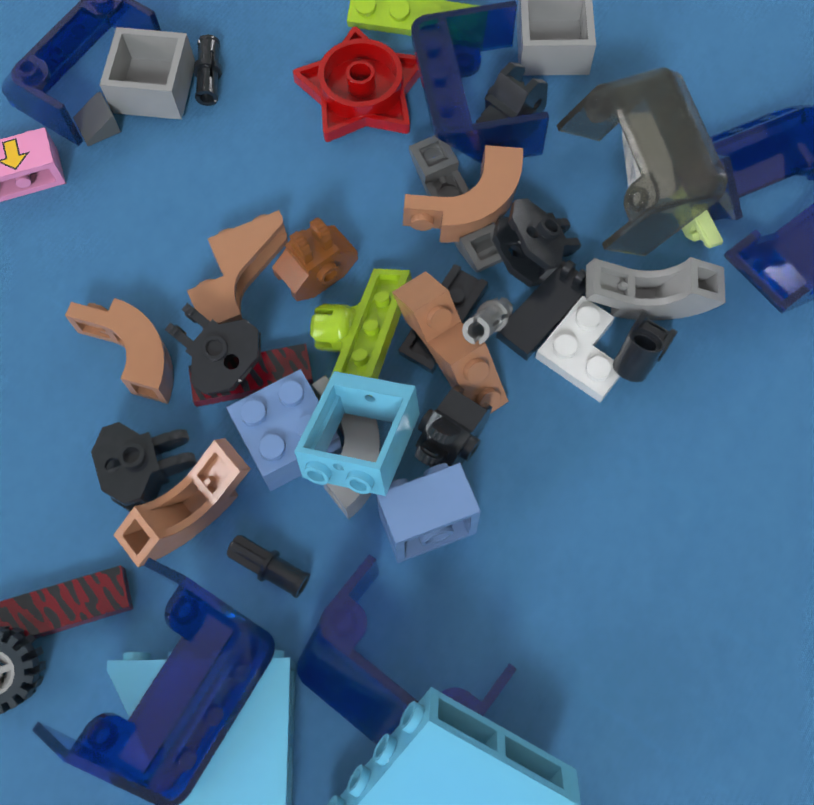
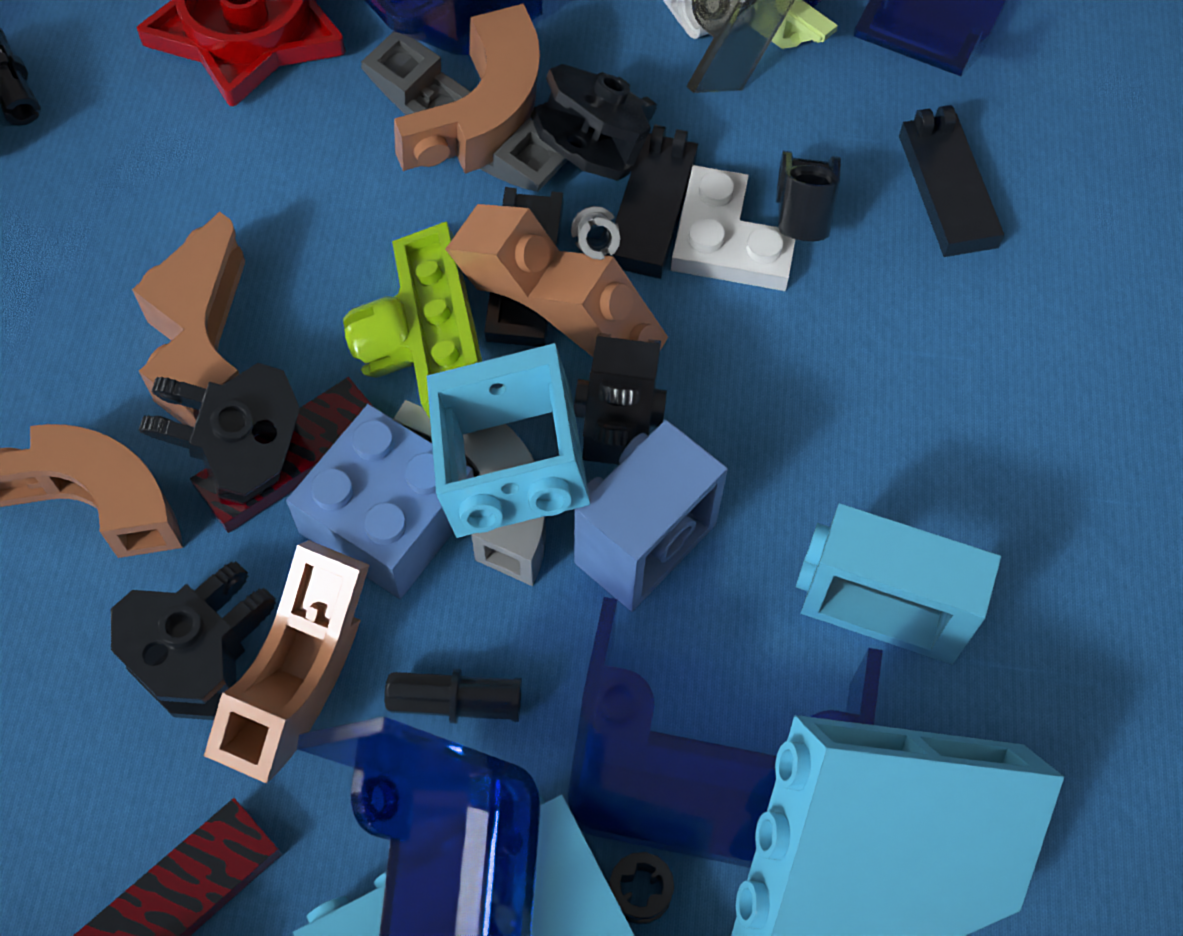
camera: 30 degrees left, 5 degrees down
(312, 717) = (656, 903): none -> black bush
(314, 260) = (304, 257): dark orange hinge -> none
(555, 627) = (897, 583): none -> medium azure window
(661, 294) = (800, 117): light grey arch -> none
(747, 378) = (950, 183): none -> black hinge

